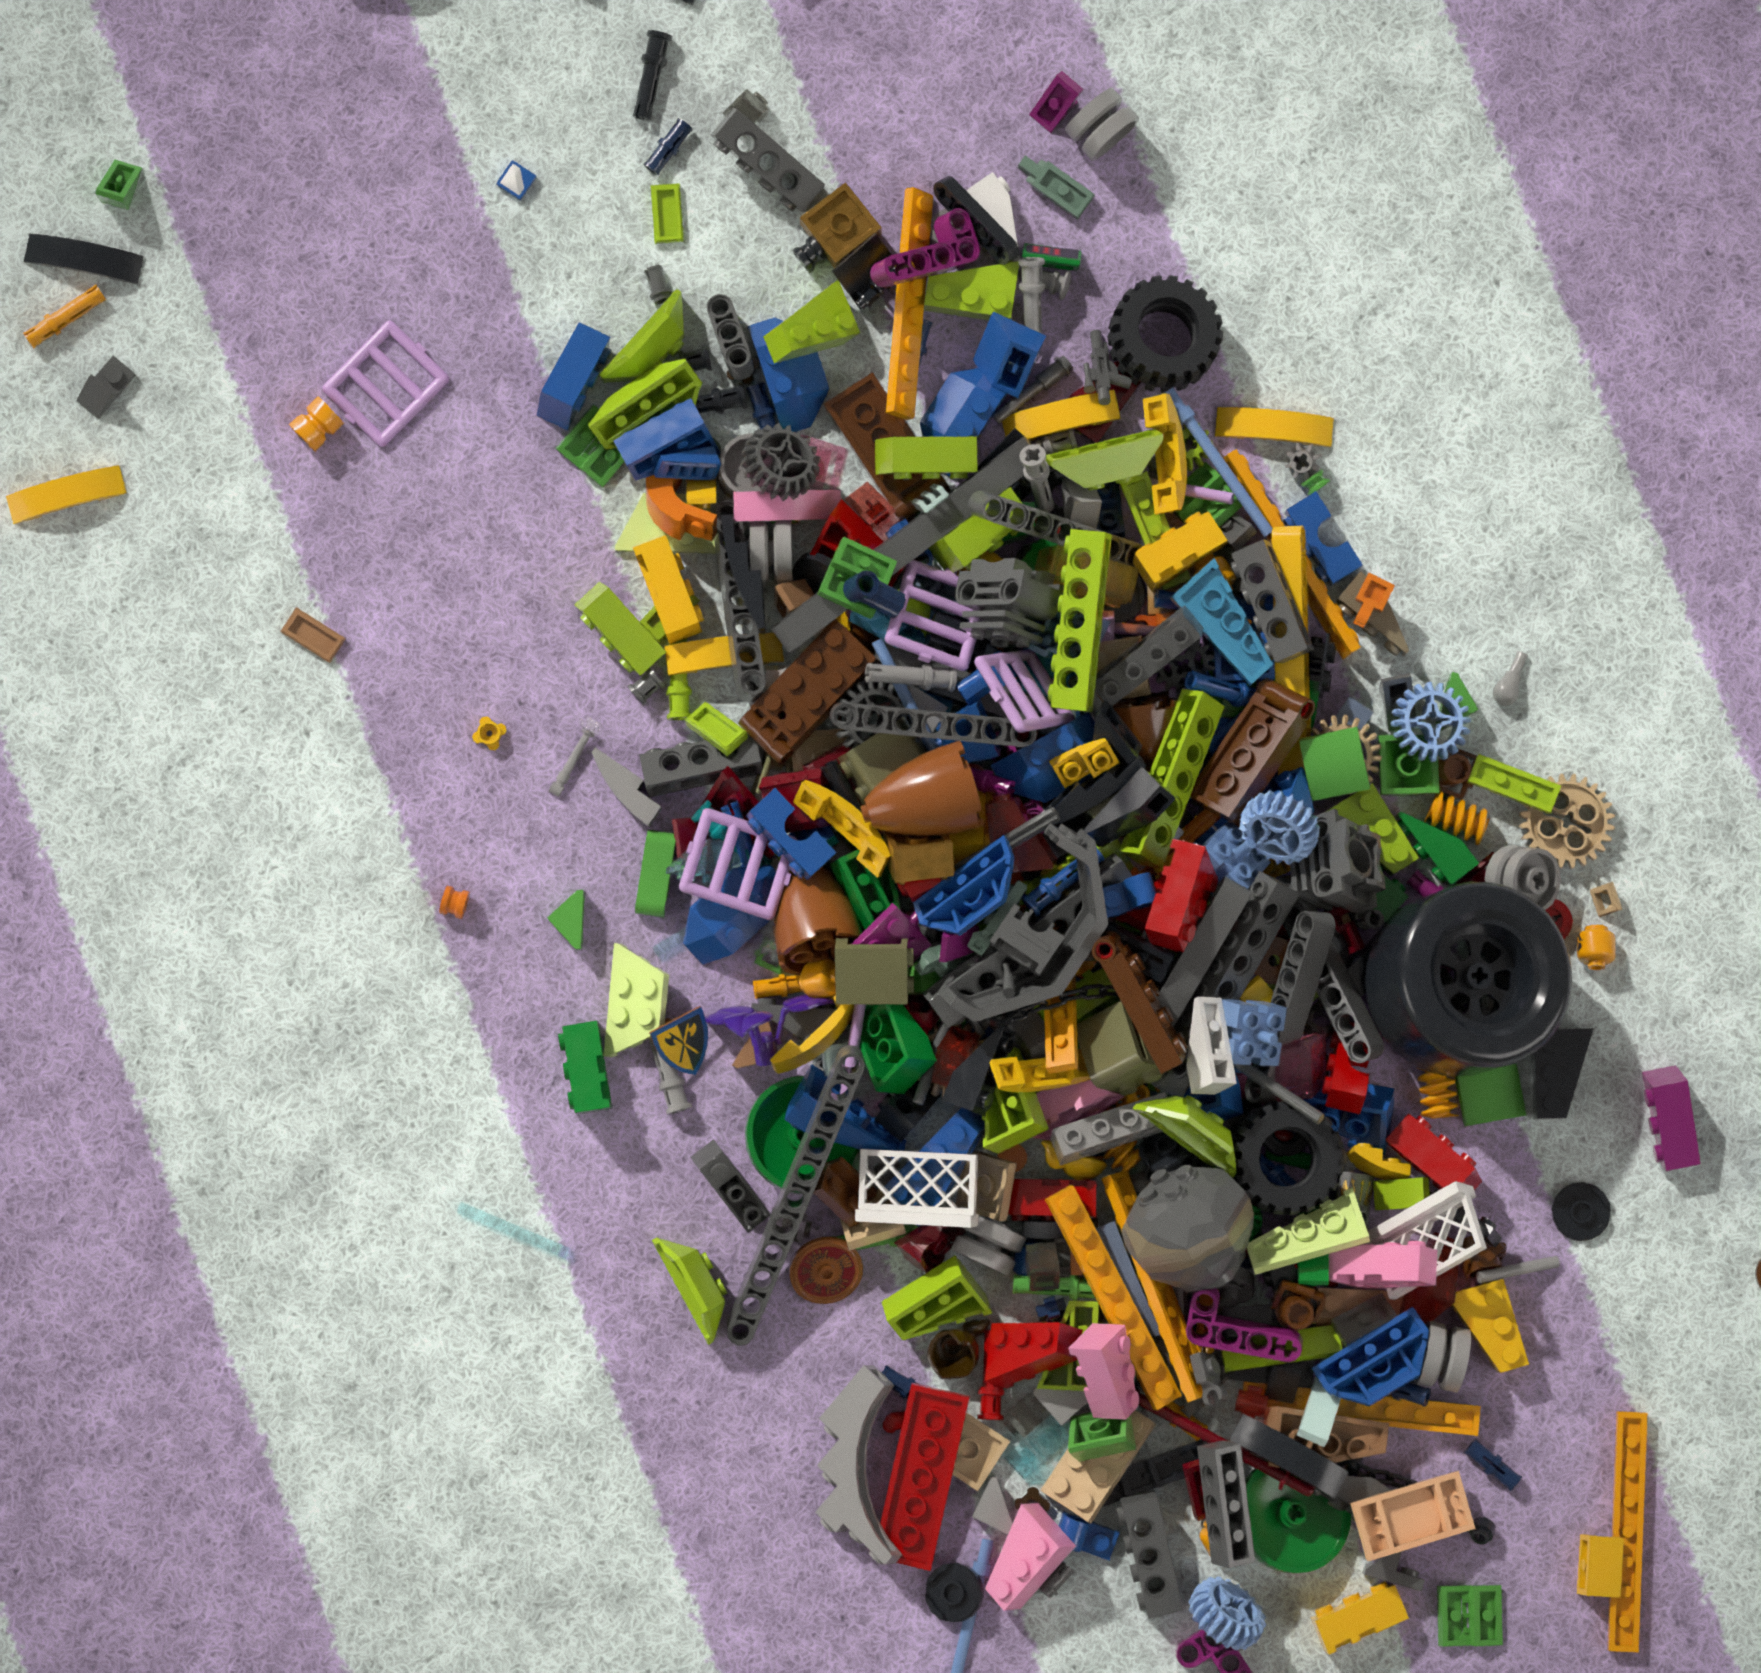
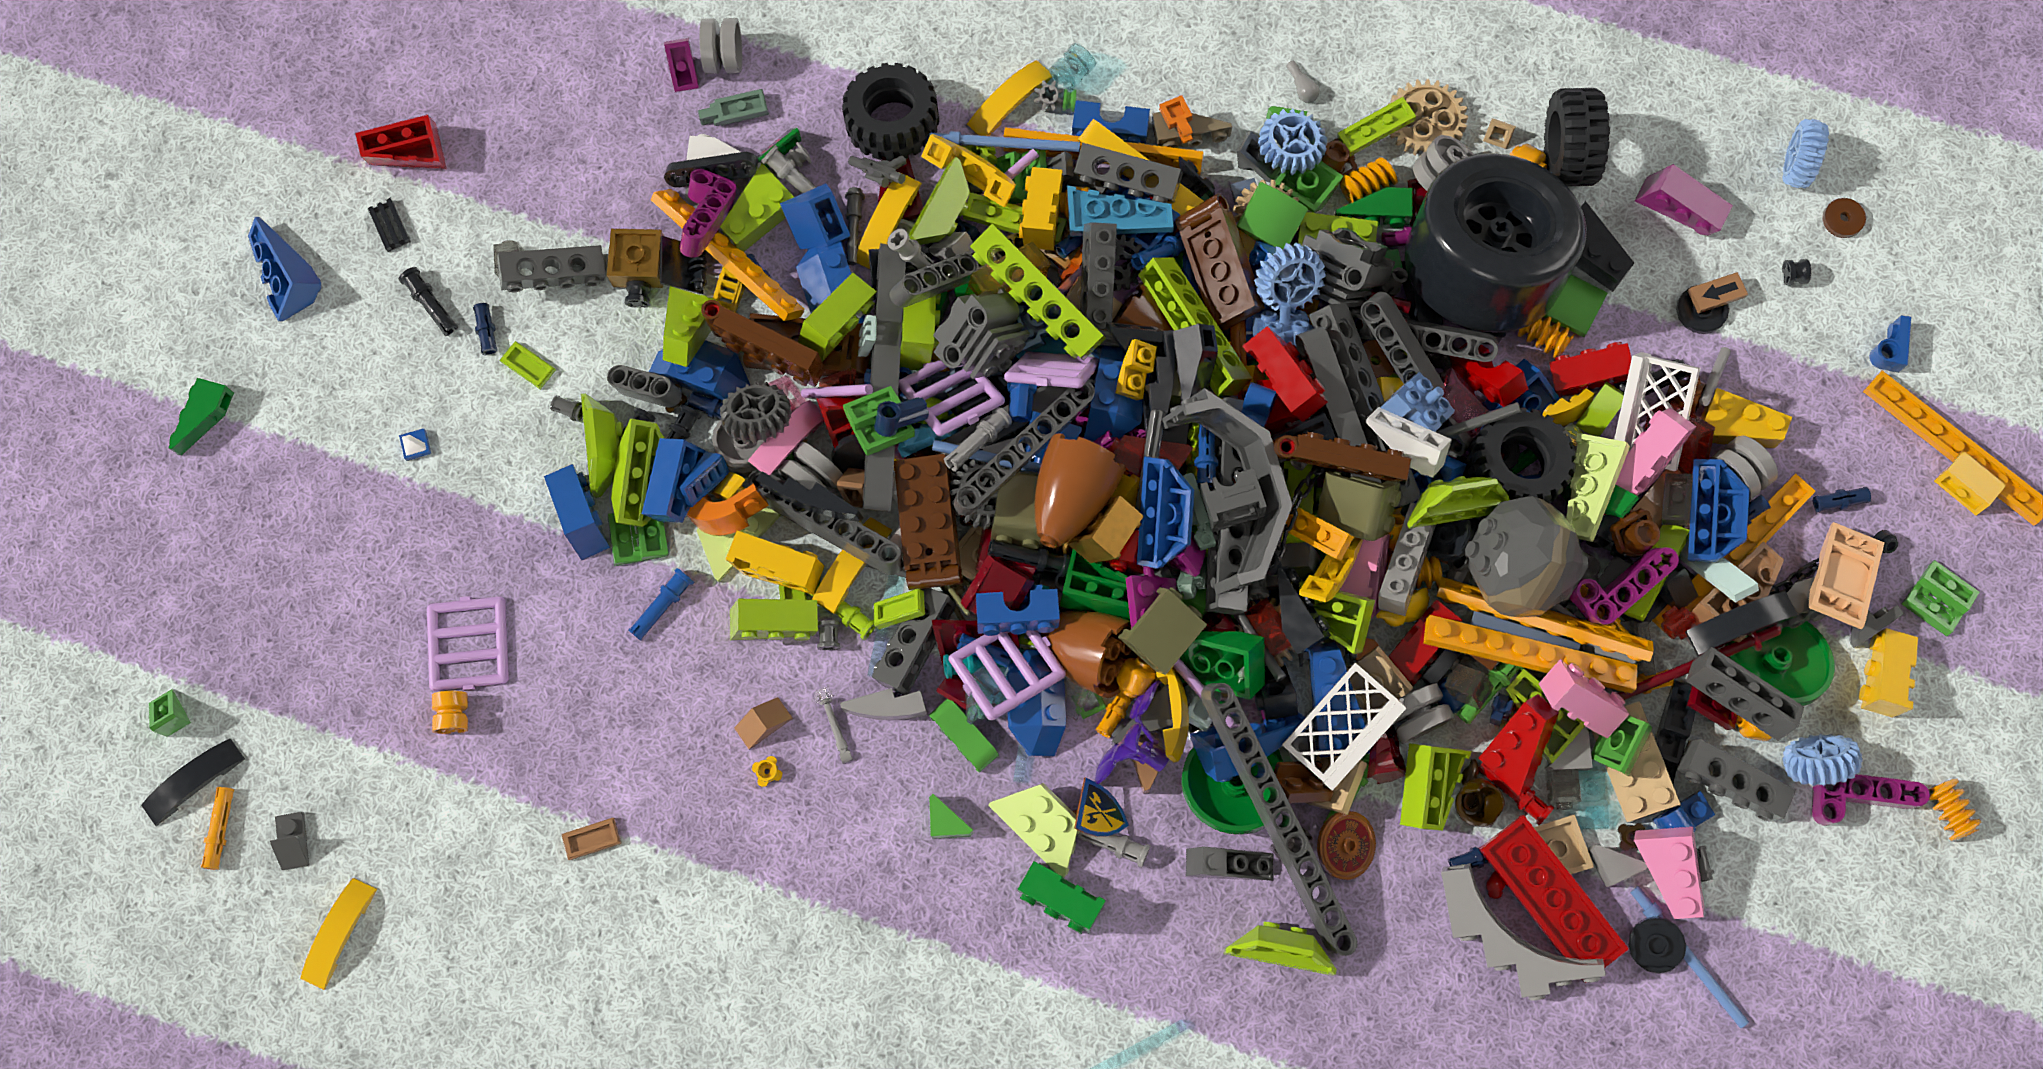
camera: 45 degrees left, 10 degrees down
(454, 902) = (863, 894): orange wheel -> none
(527, 694) = (762, 722): none -> medium nougat slope
(568, 519) = (669, 594): none -> blue pin
(682, 731) = (881, 634): none -> clear light blue bar
(846, 413) = (763, 344): none -> reddish brown hinge
(846, 819) = (1043, 563): yellow slope -> none
(861, 512) = (835, 391): none -> lavender bar
(871, 324) = (719, 290): none -> yellow slope
(1009, 981) = (1250, 539): dark grey bar -> none
(1206, 1373) = (1635, 630): dark grey plate -> none
(1350, 459) = (1074, 65): none -> clear light blue wheel
(1604, 1213) = (1717, 292): none -> medium nougat tile
(1643, 974) = (1577, 135): none -> black tyre
(1681, 1412) = (1895, 346): none -> blue plate
(1685, 1269) = (1796, 271): none -> black wheel

